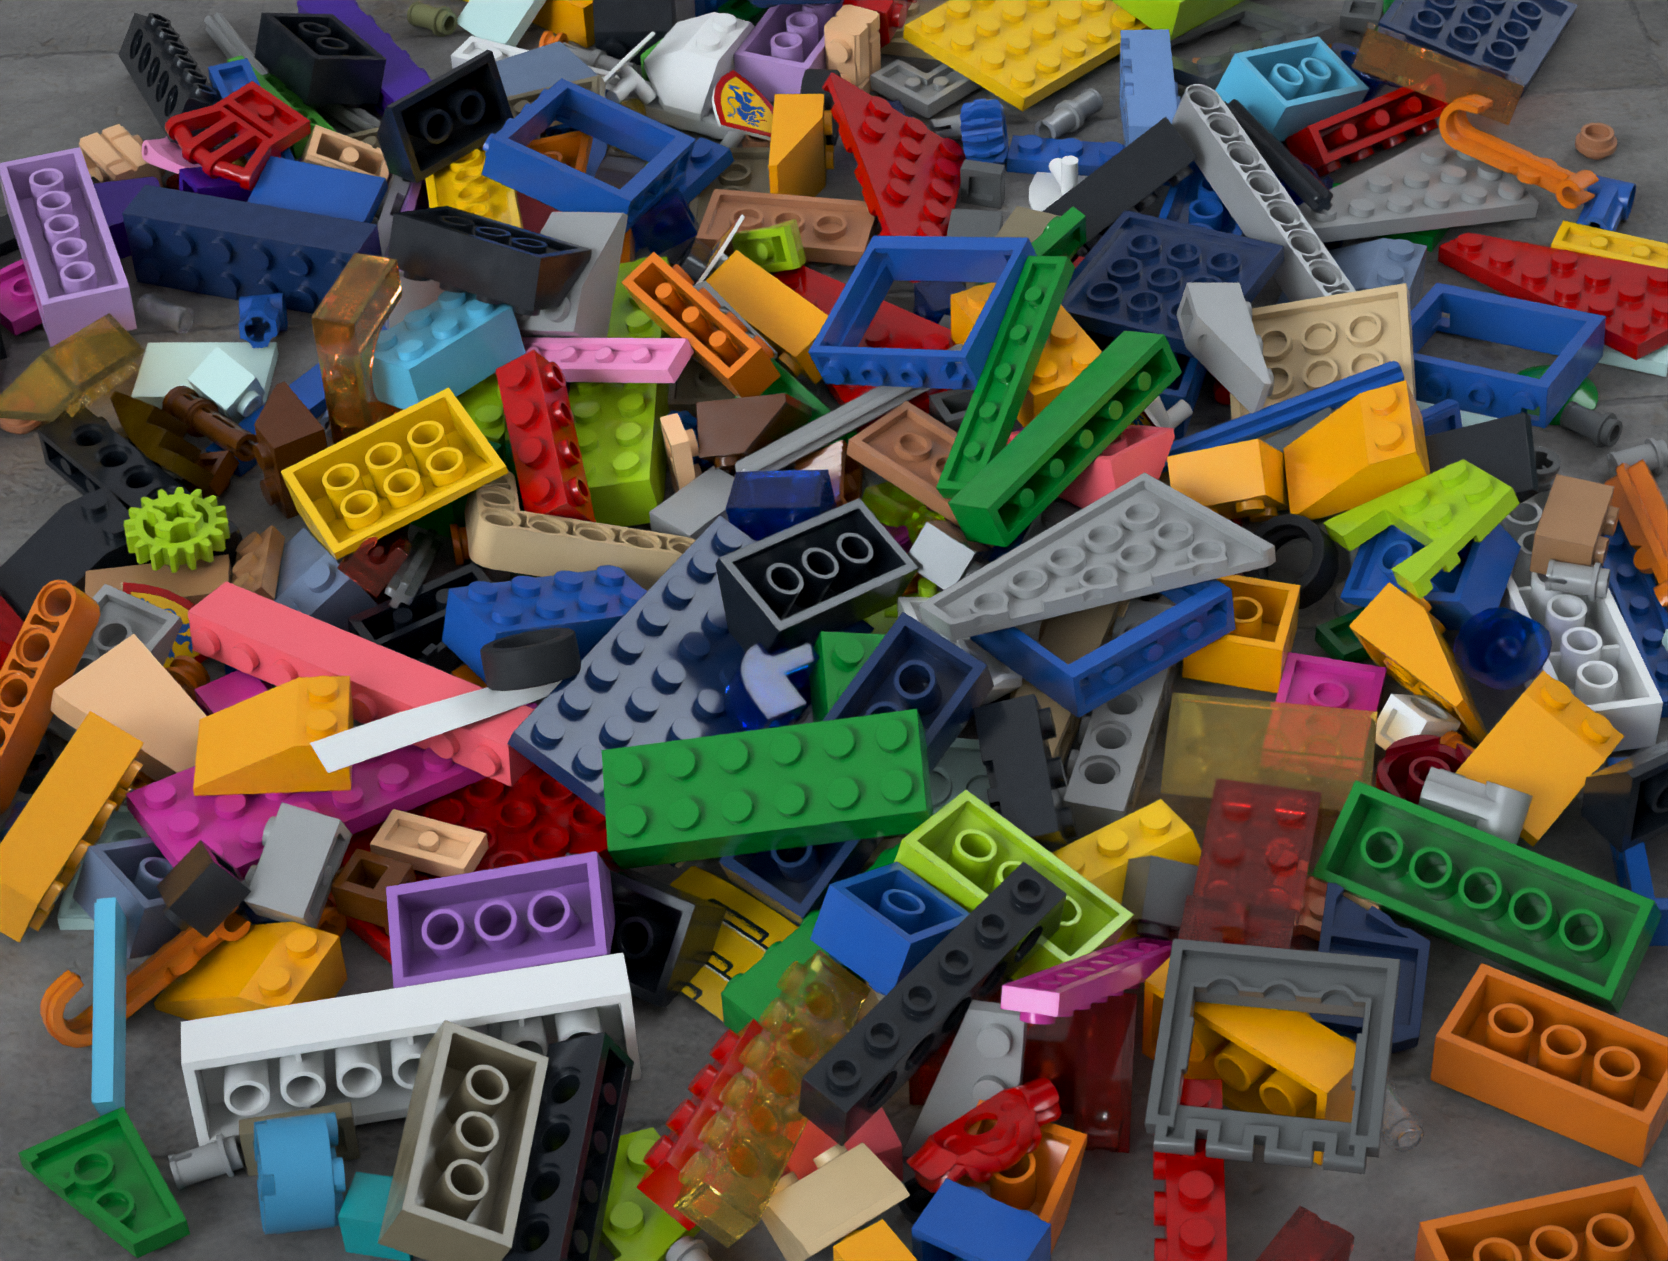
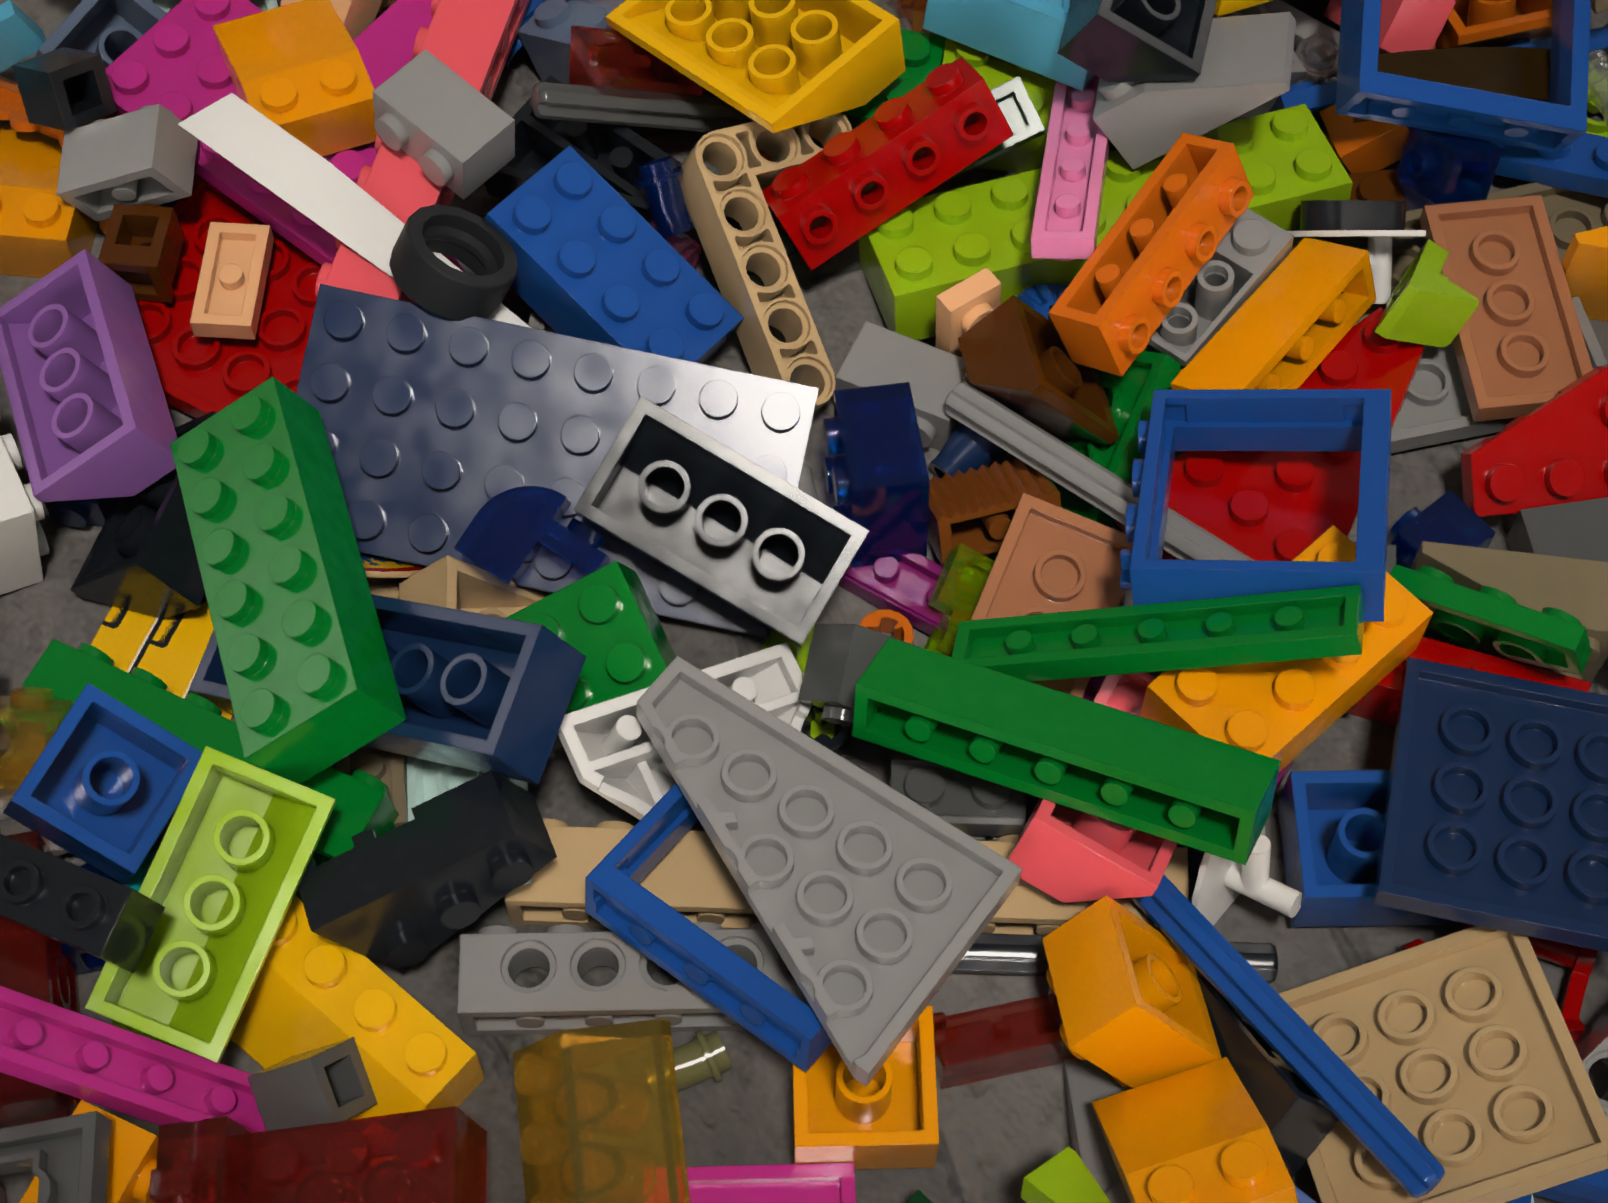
camera: 70 degrees right, 20 degrees up
(399, 642) = (443, 124): none -> light grey brick
(490, 567) = (665, 196): none -> clear blue pin
(1223, 338) = (1385, 897): light grey slope -> none
(1324, 561) = (1004, 1092): black tyre -> none

